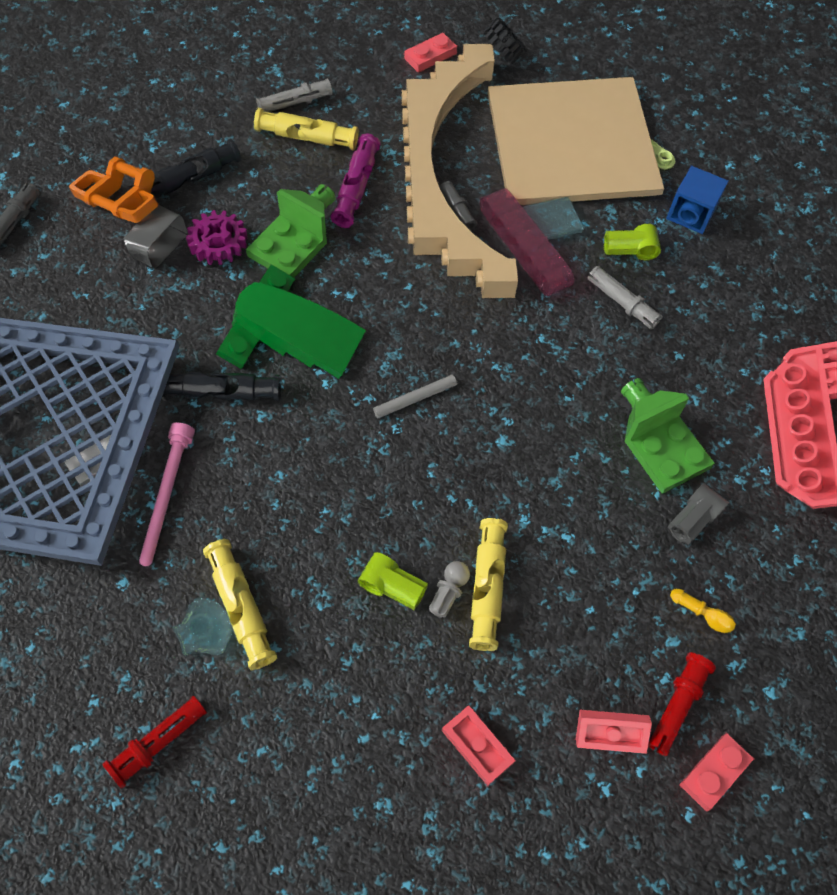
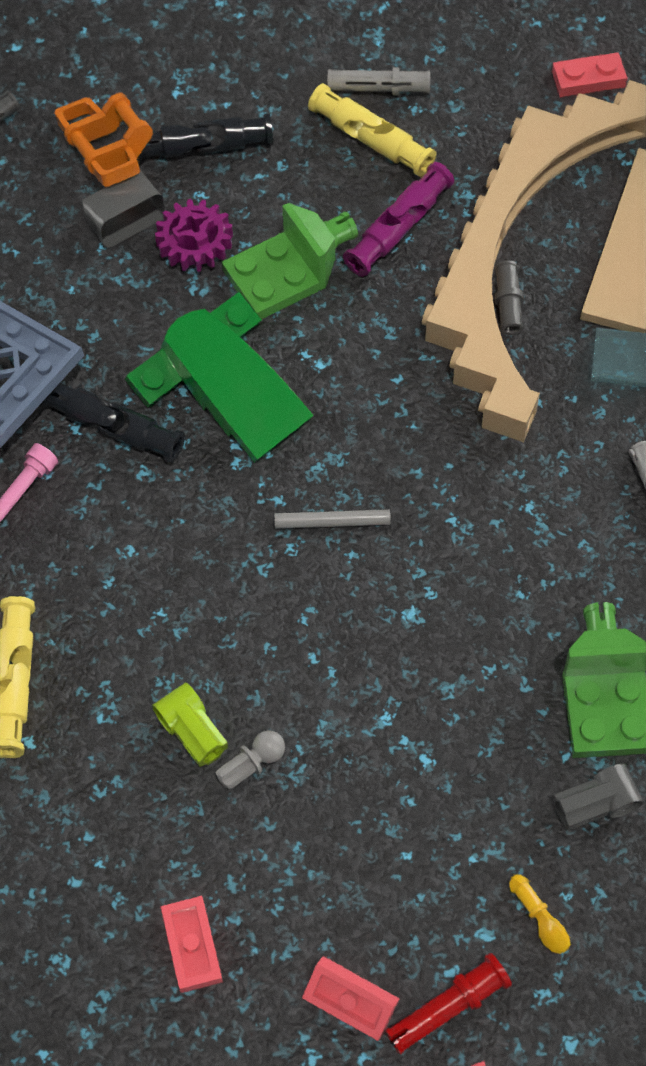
camera: 30 degrees right, 0 degrees up
(489, 580) = (296, 777): light yellow piece -> none
(526, 242) = (572, 376): clear pink beam -> none

